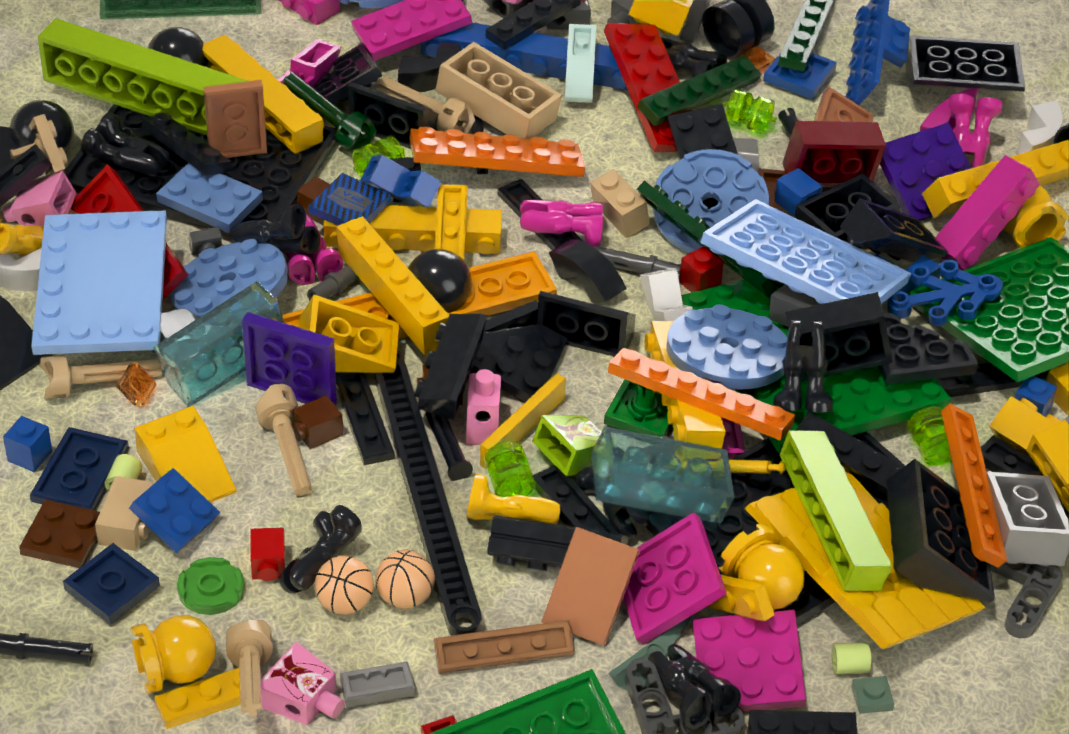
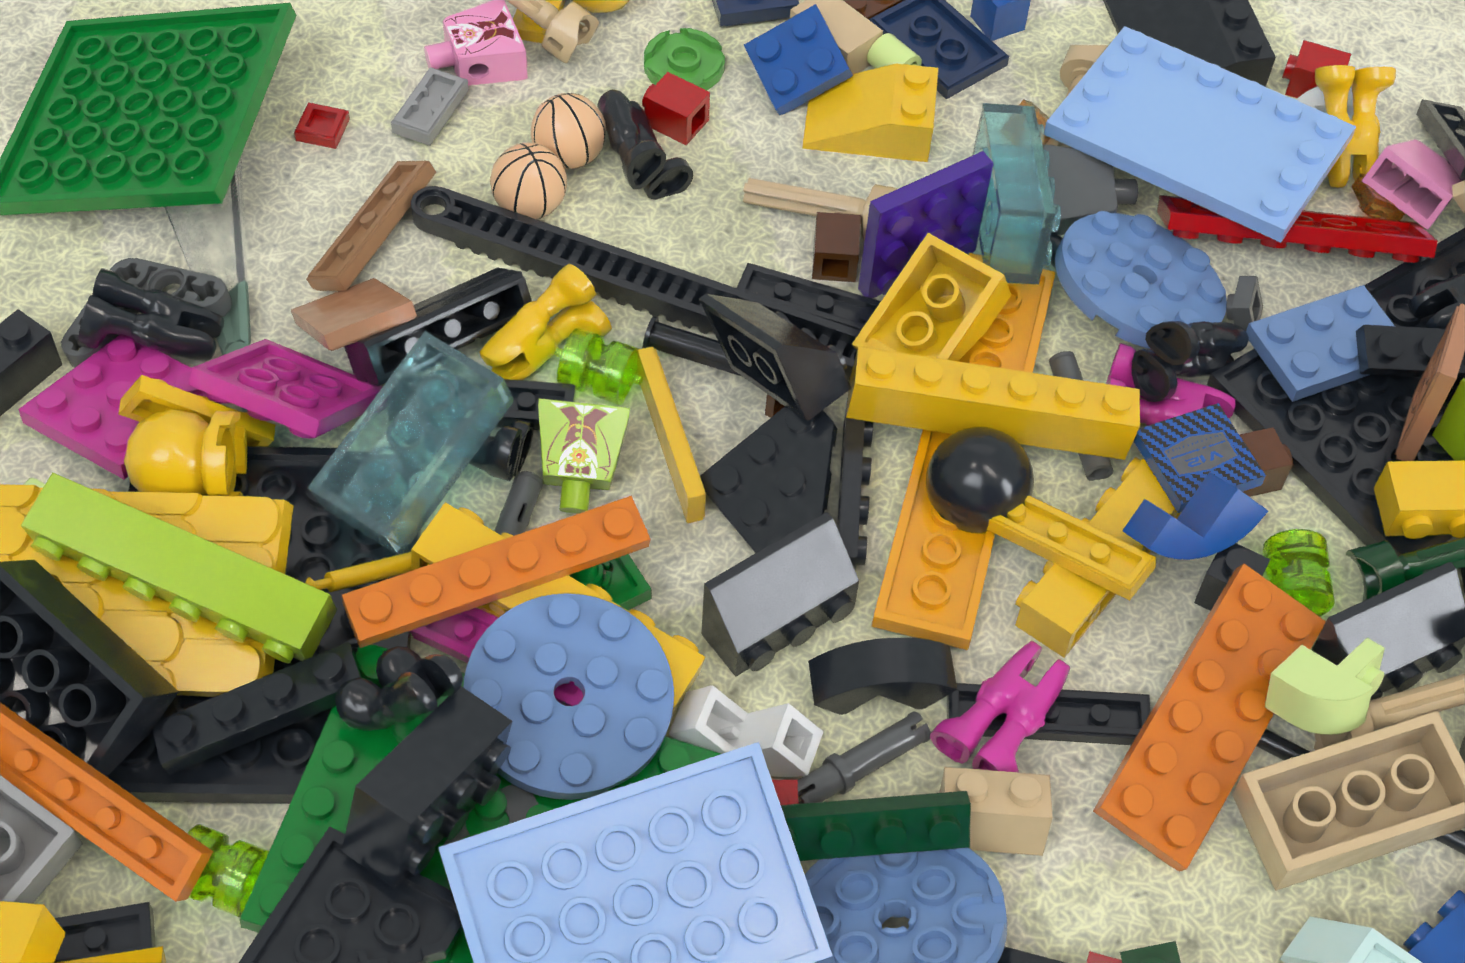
camera: 125 degrees right, 10 degrees up
(461, 100) = (1325, 695): none -> yellowish green brick
(482, 396) = (720, 395): bright pink torso -> none

